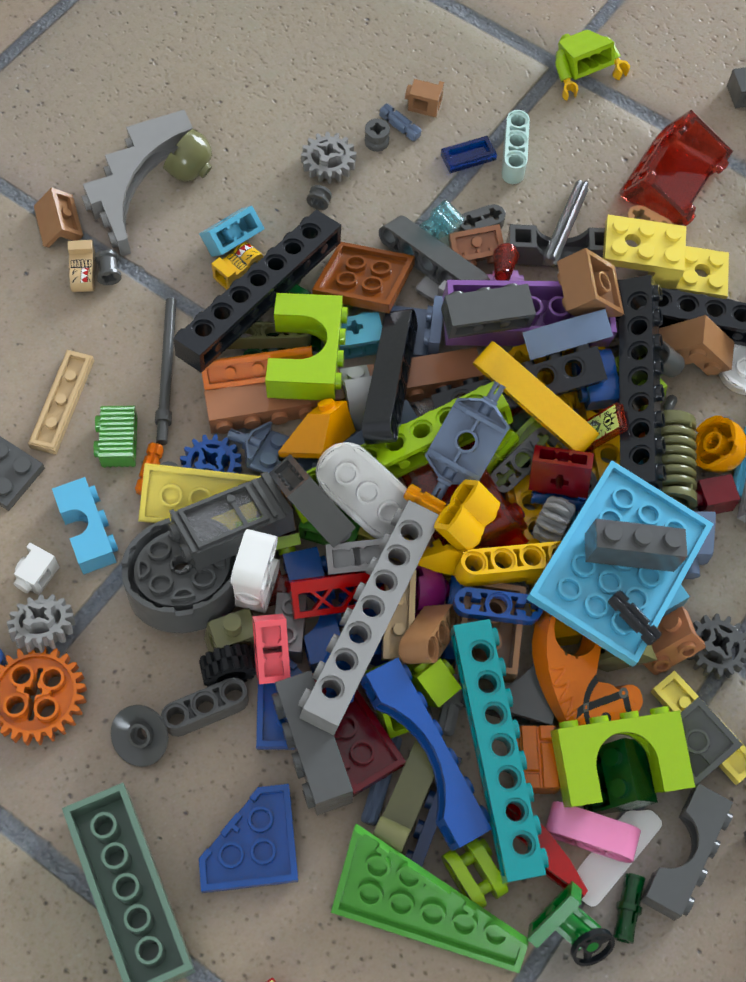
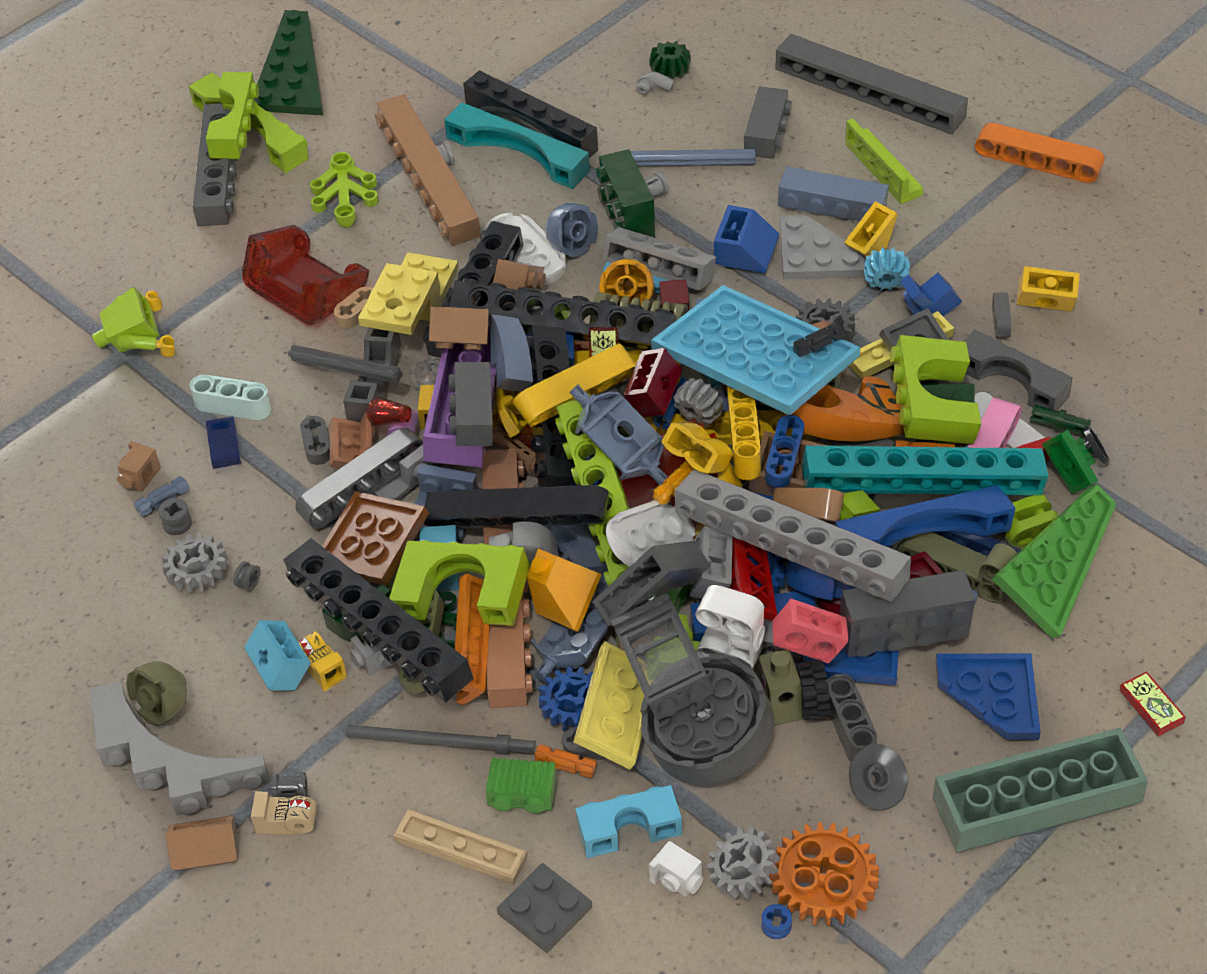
camera: 75 degrees left, 15 degrees down
(443, 220) = (315, 461): clear light blue piece -> none
(635, 545) = (749, 326): dark grey brick -> none

